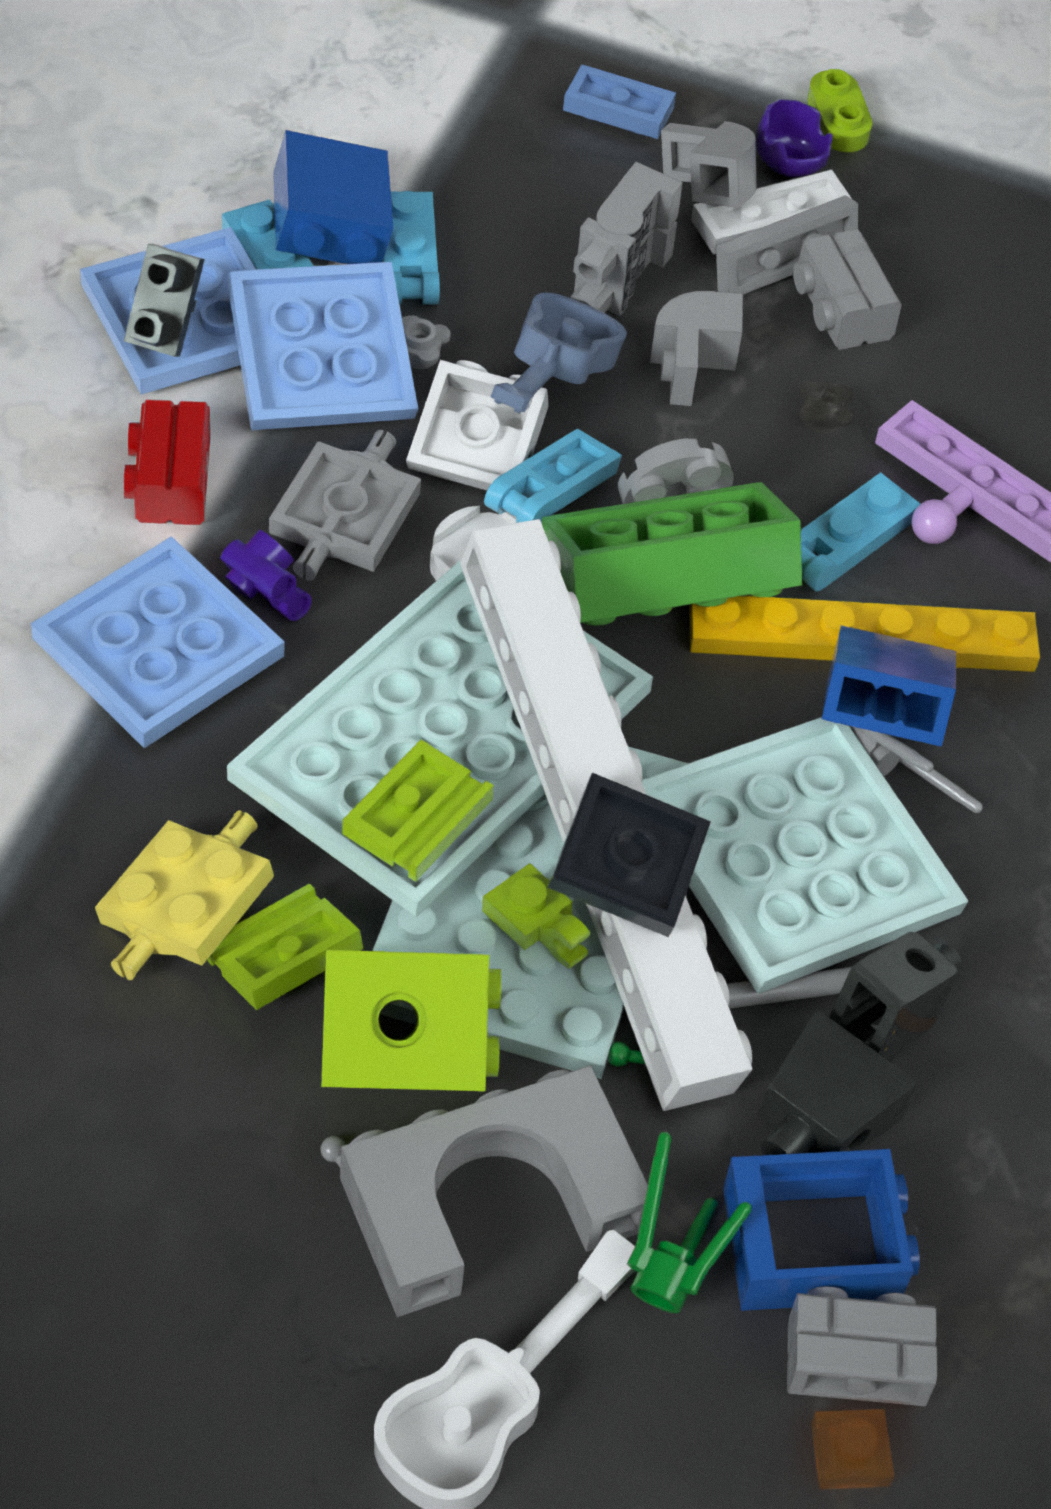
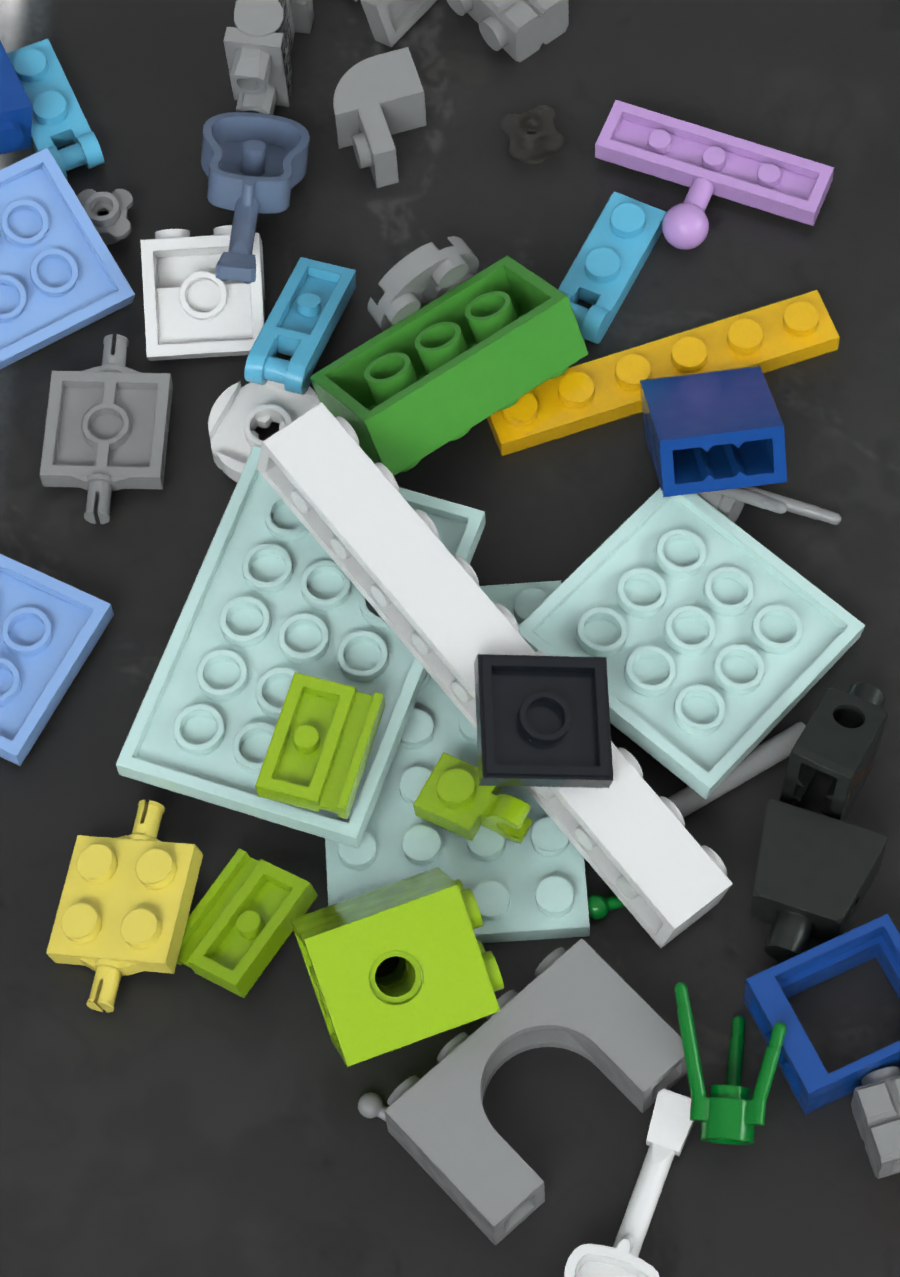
camera: 10 degrees left, 10 degrees up
(262, 569) = (53, 534): dark purple plate -> none

